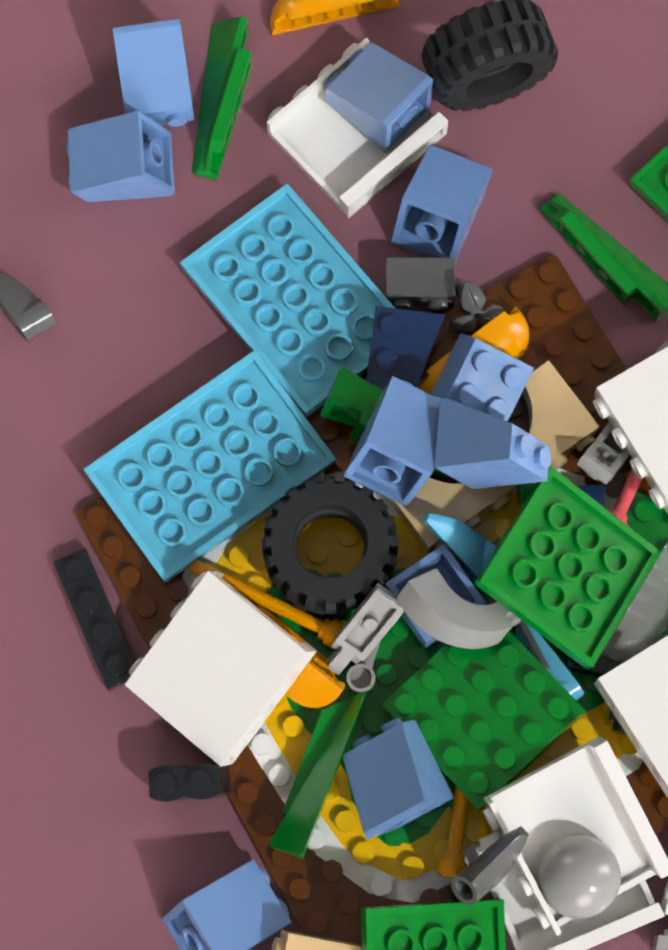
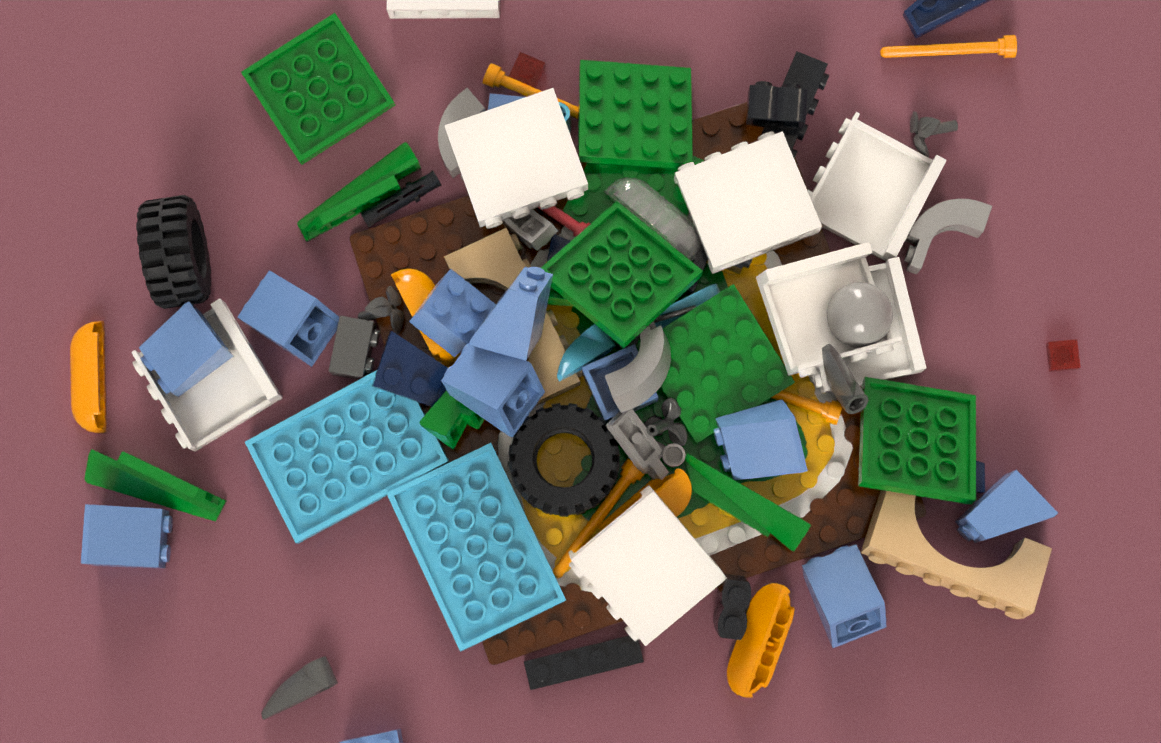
camera: 75 degrees left, 5 degrees up
(120, 159) = (194, 579): medium blue slope -> none
(154, 826) = (759, 649): none -> light orange brick
(394, 653) = (656, 425): none -> dark grey plant
(640, 332) = (371, 214): none -> black pin

